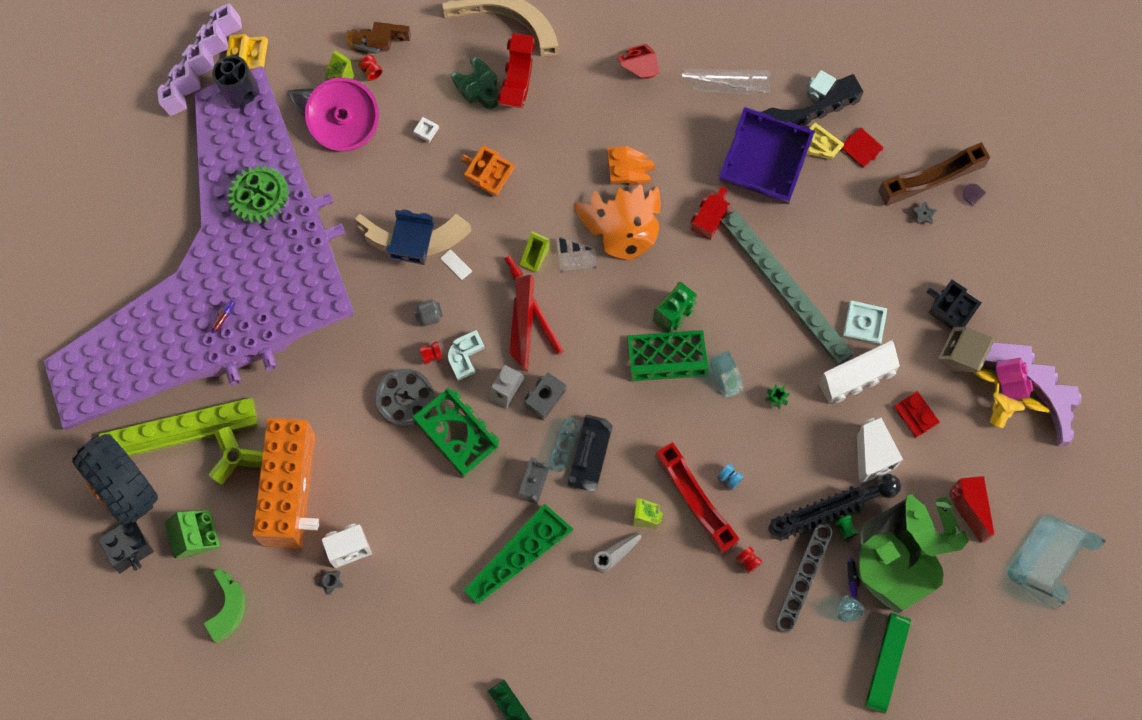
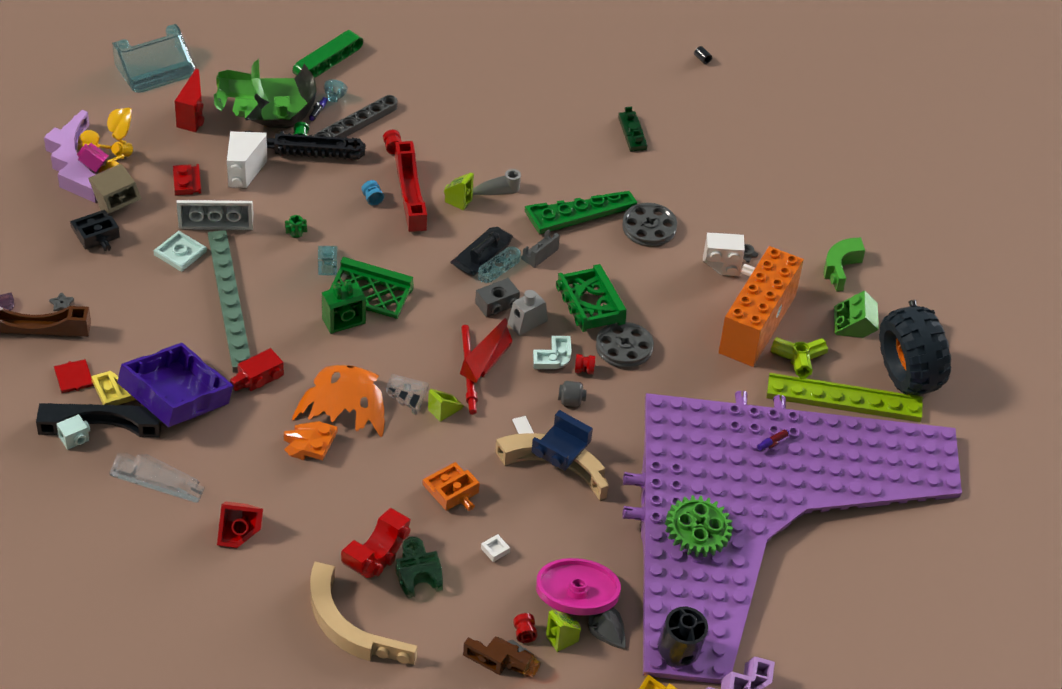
camera: 160 degrees left, 25 degrees down
(442, 580) = (649, 224): none -> dark grey wedge

